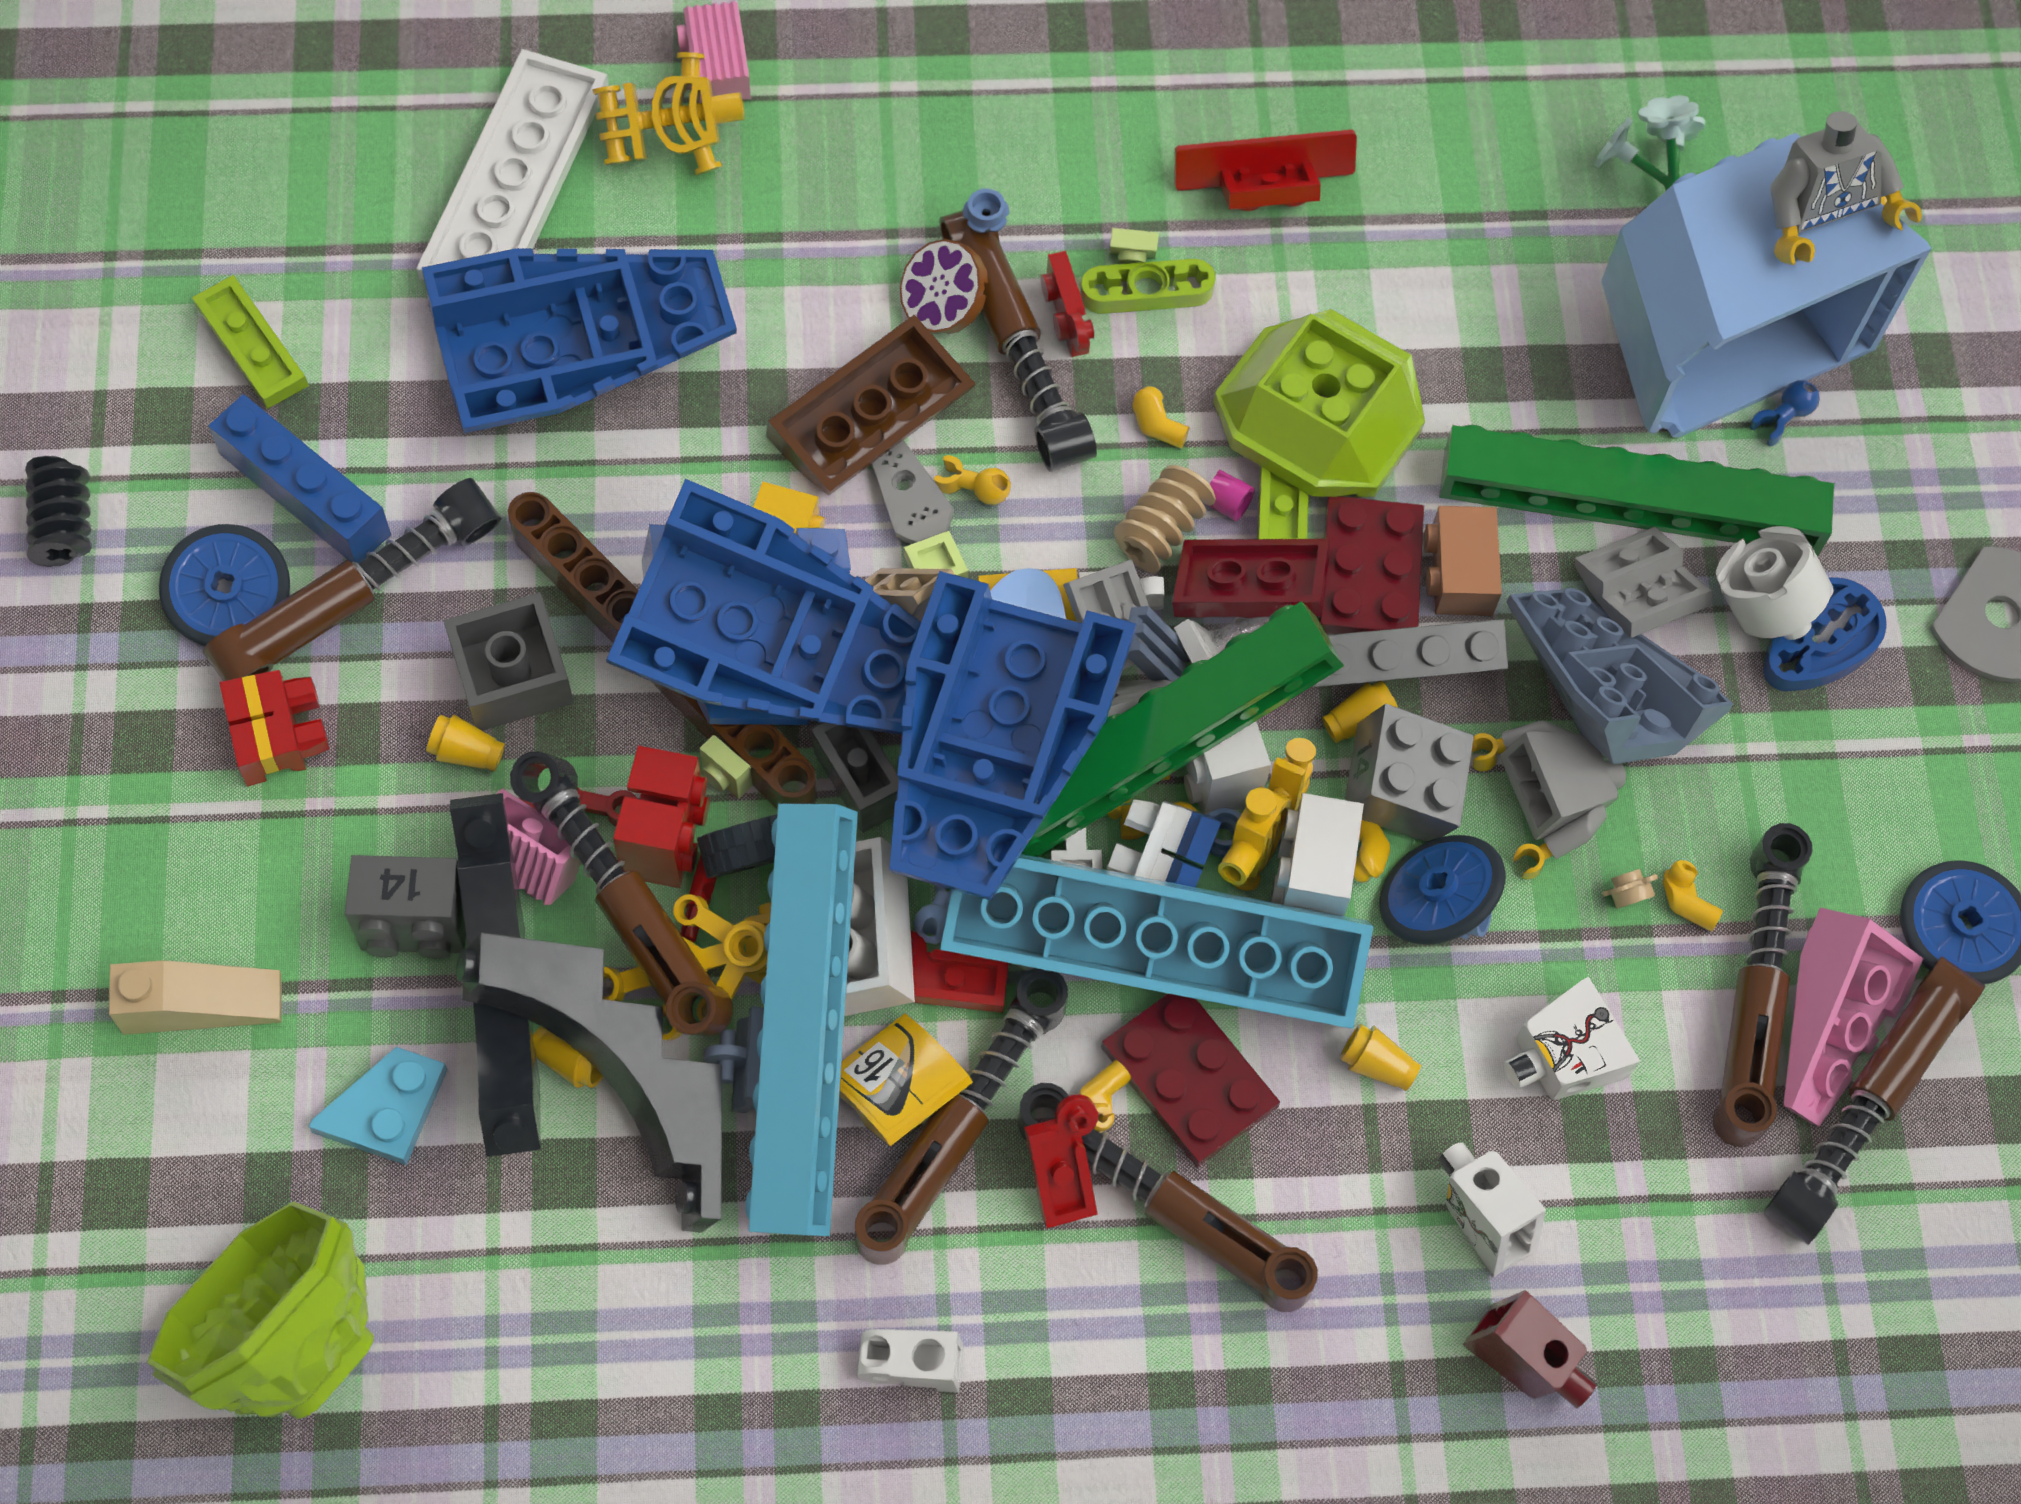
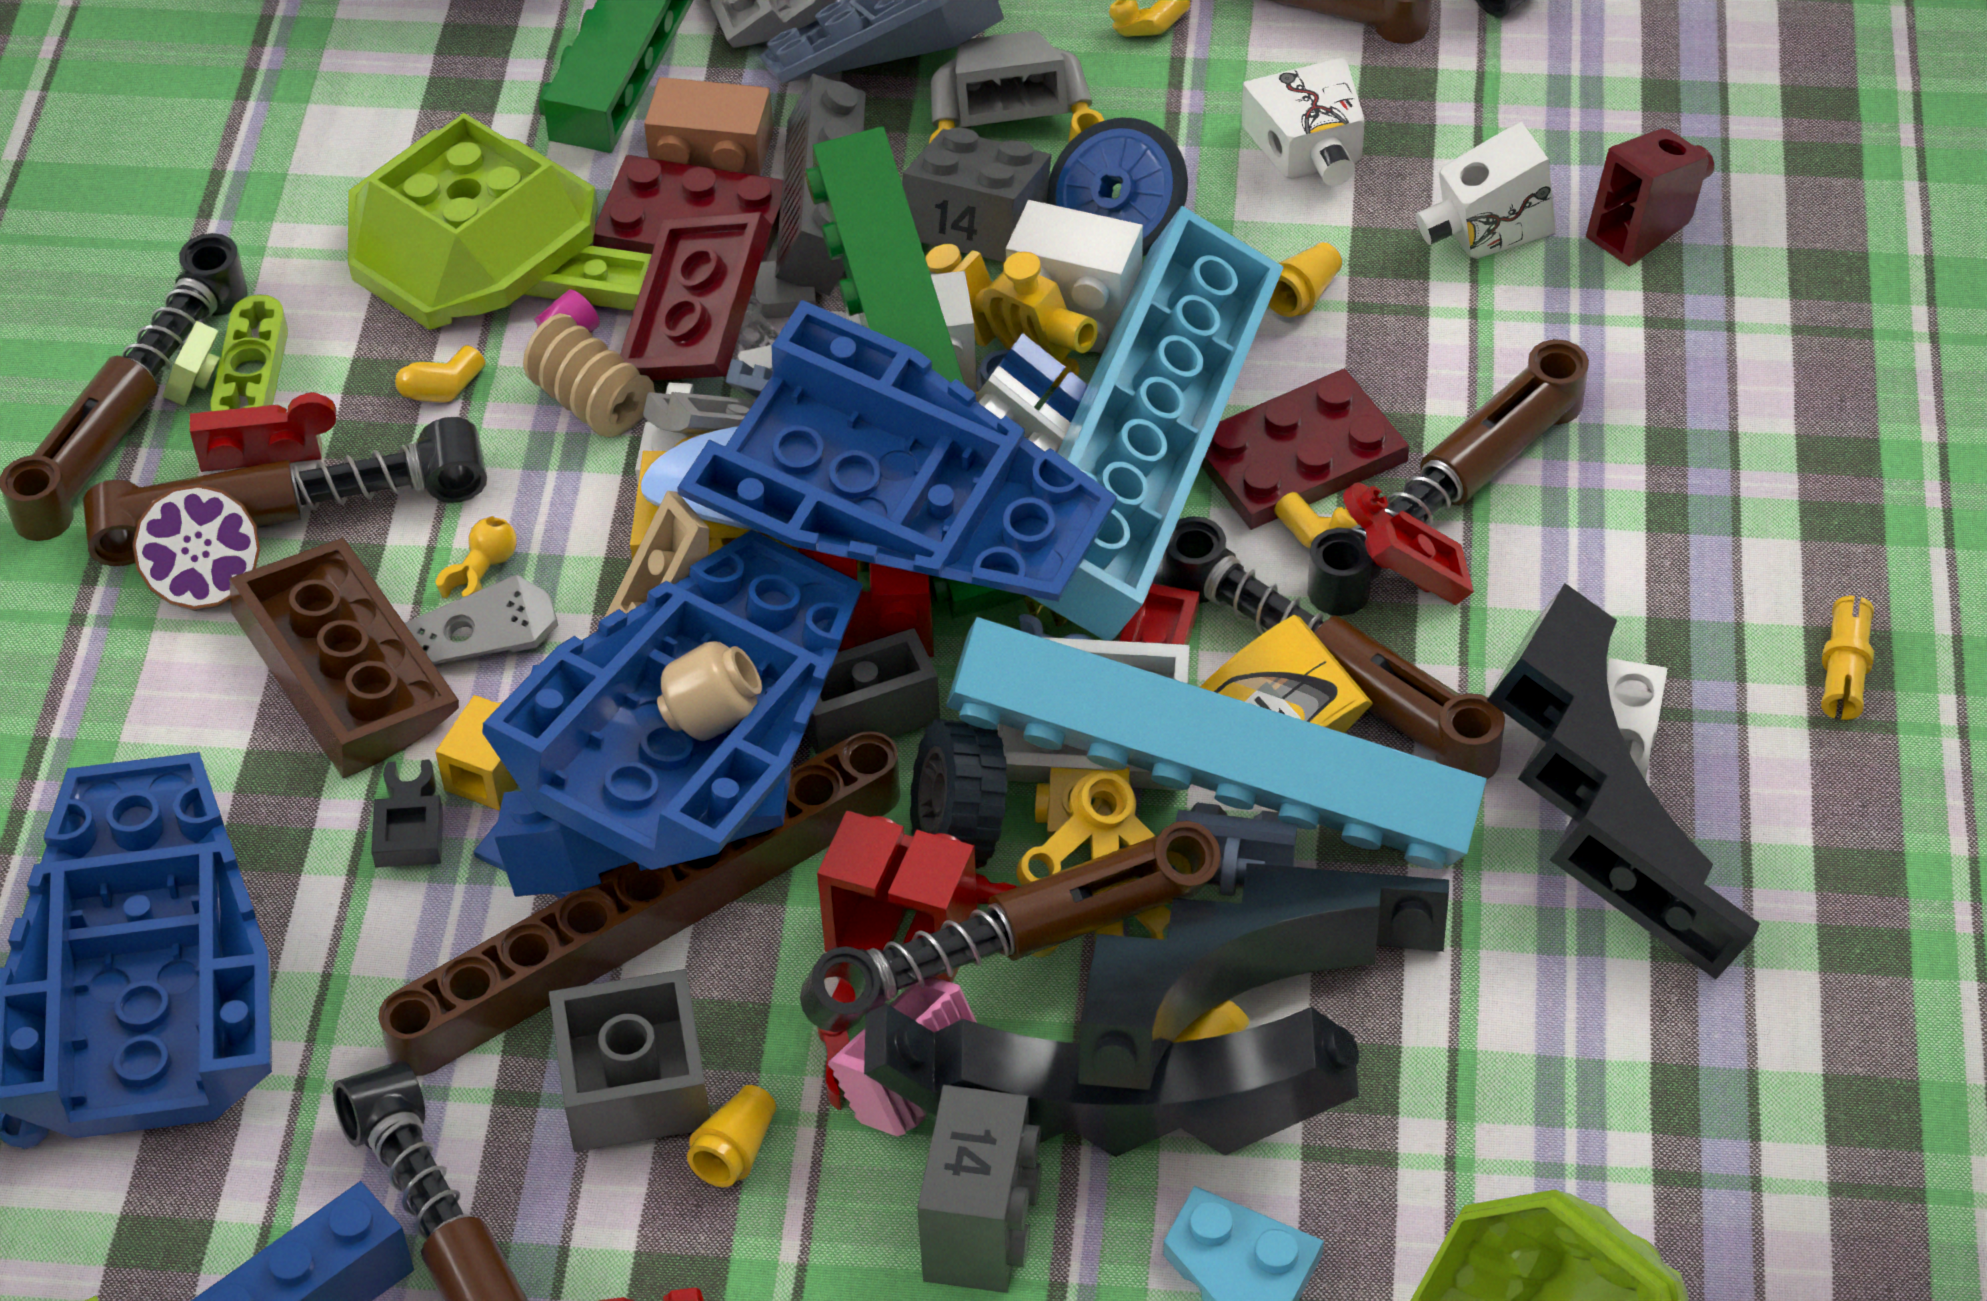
camera: 75 degrees left, 15 degrees down
(721, 477) = (409, 821): none -> black plate
(725, 768) = (814, 838): yellowish green plate -> none
(764, 633) = (708, 690): none -> tan head
(771, 1346) = (1618, 831): none -> black arch
(936, 553) = (582, 602): yellowish green plate -> none
(986, 201) = (112, 472): medium blue plate -> none
(1103, 205) = (44, 485): none -> reddish brown piece
(1266, 168) = (129, 232): red bracket -> none
(1631, 888) = (1135, 52): tan plate -> none

